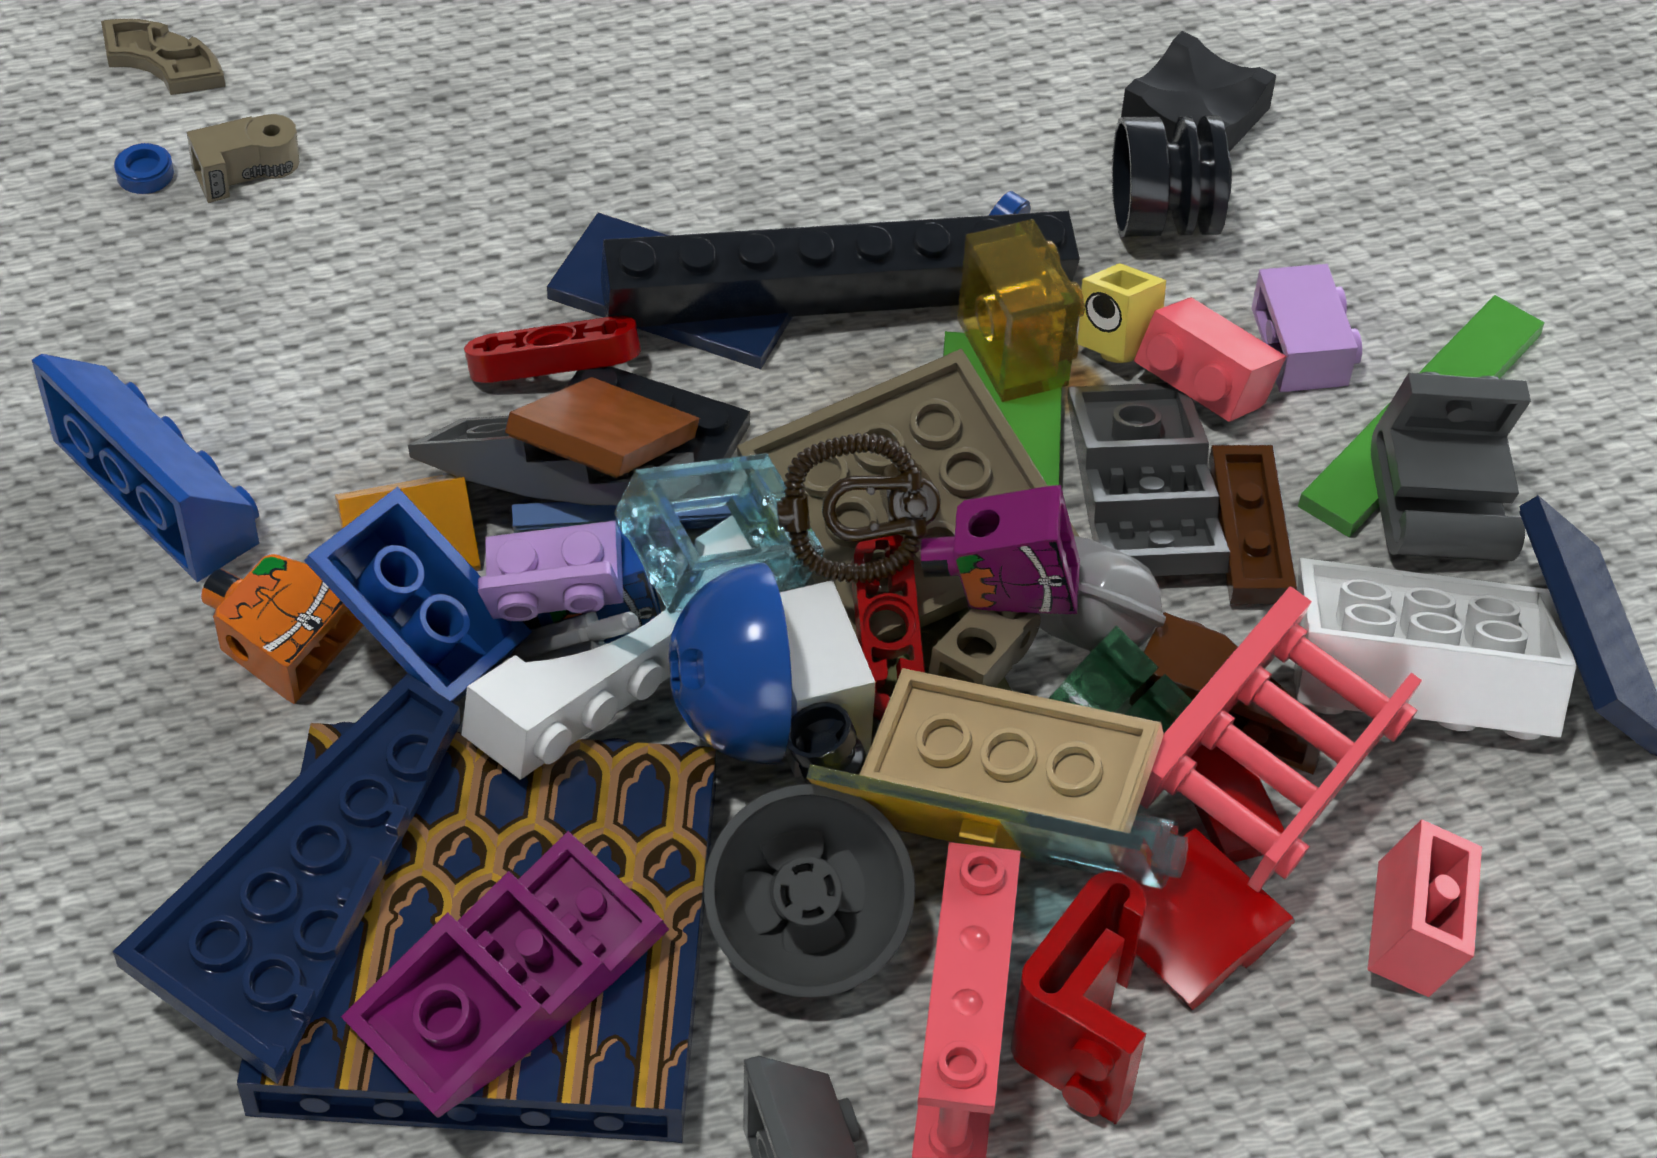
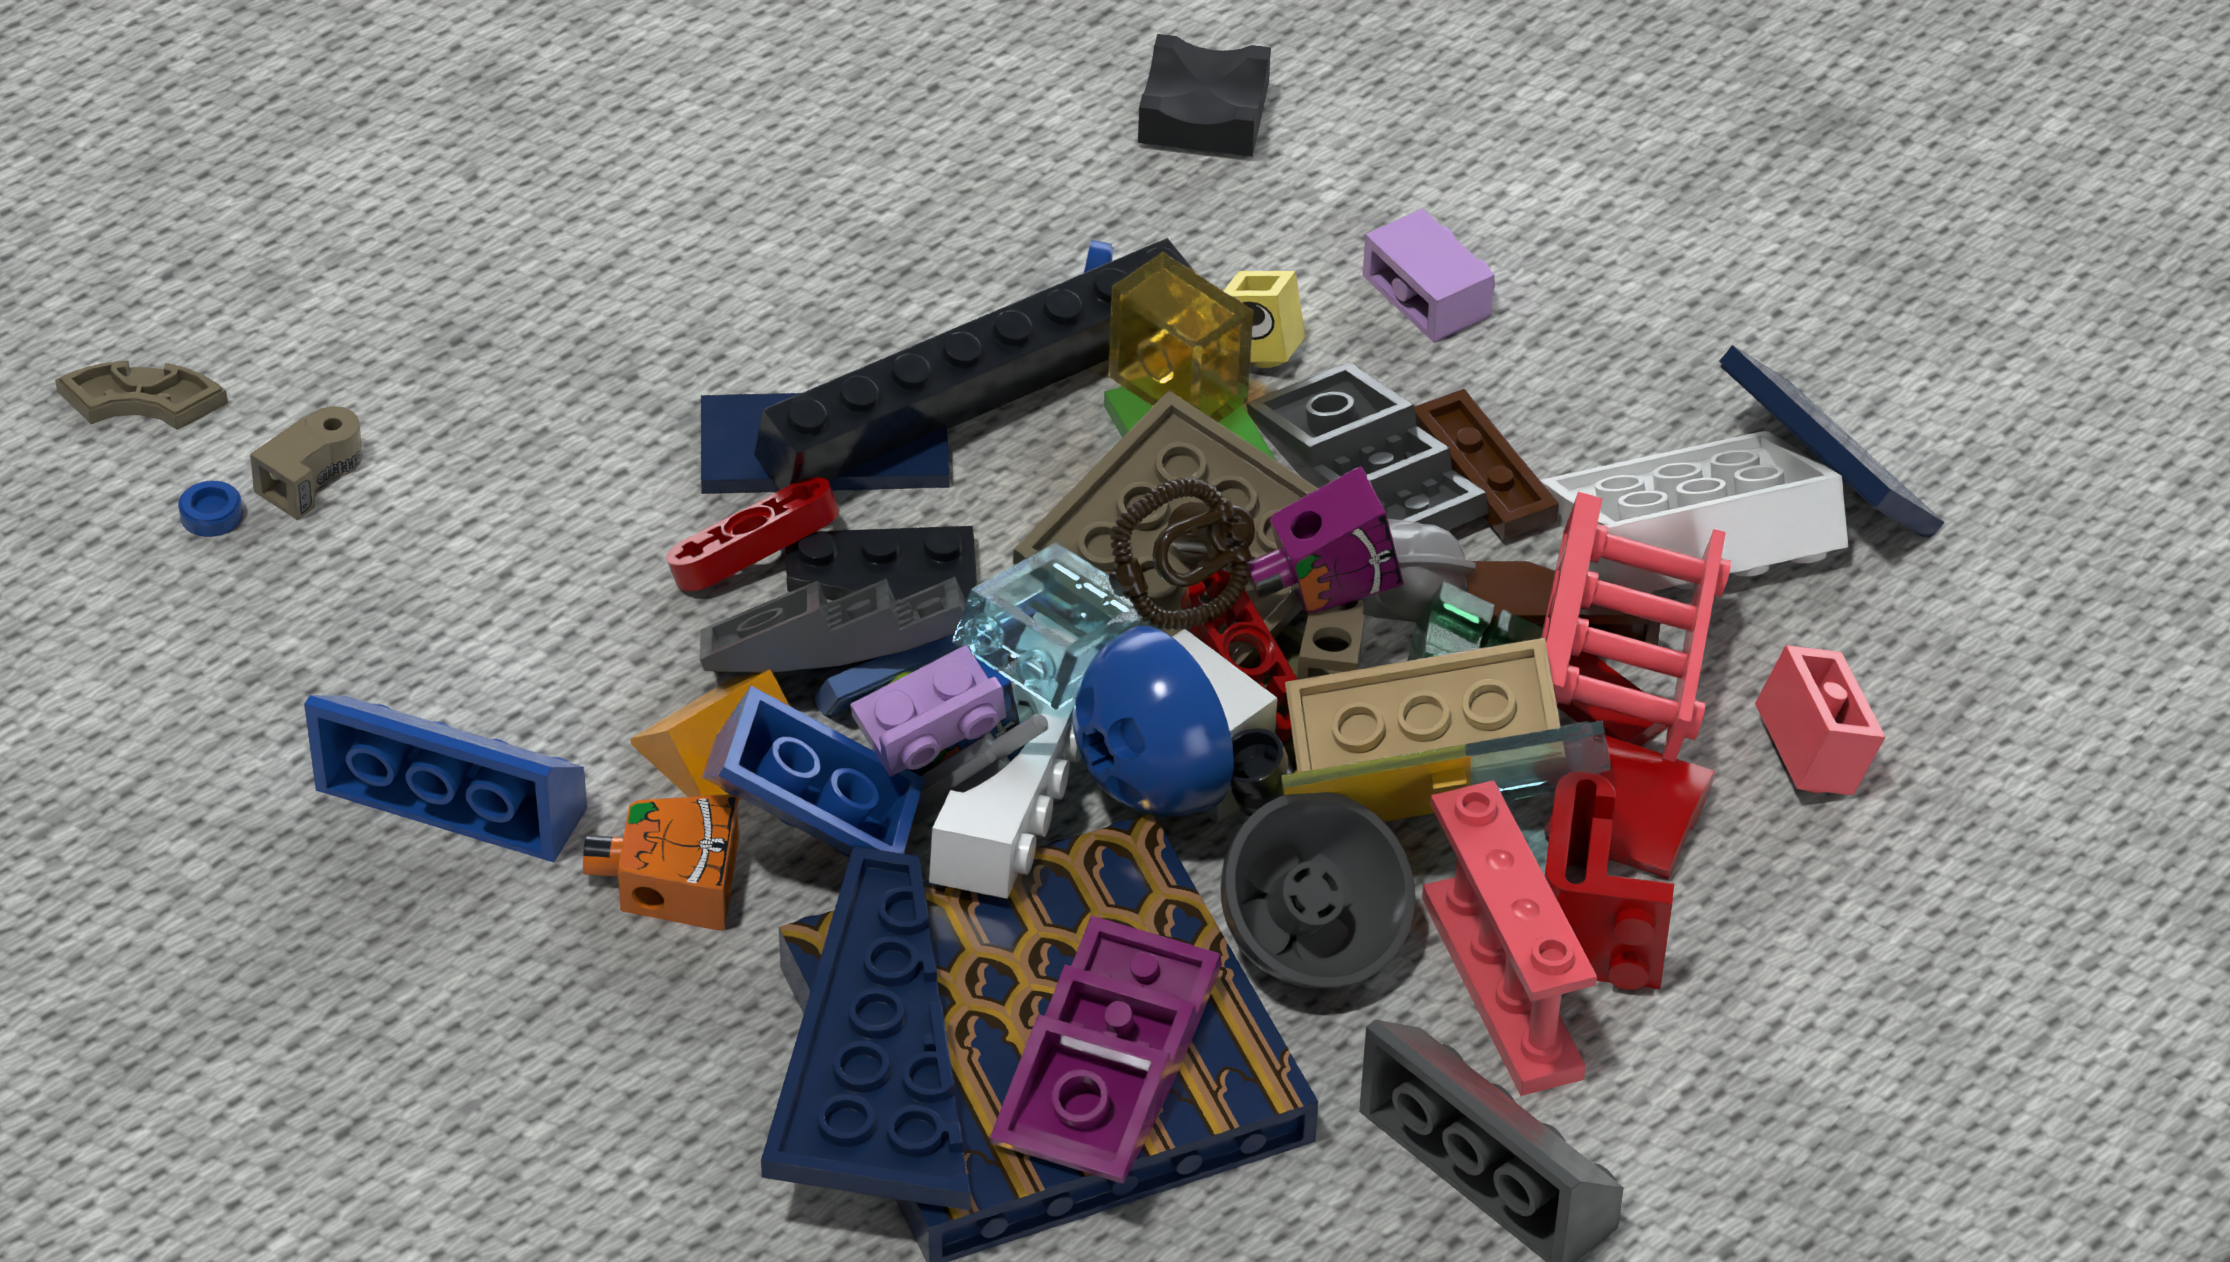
camera: 25 degrees left, 5 degrees down
(601, 426) = (873, 577): dark orange tile -> none
(1181, 175) = (1232, 175): black wheel -> none
(1209, 359) = (1364, 331): coral brick -> none
(1449, 467) = (1631, 353): dark grey piece -> none
(1484, 347) = (1572, 319): bright green tile -> none

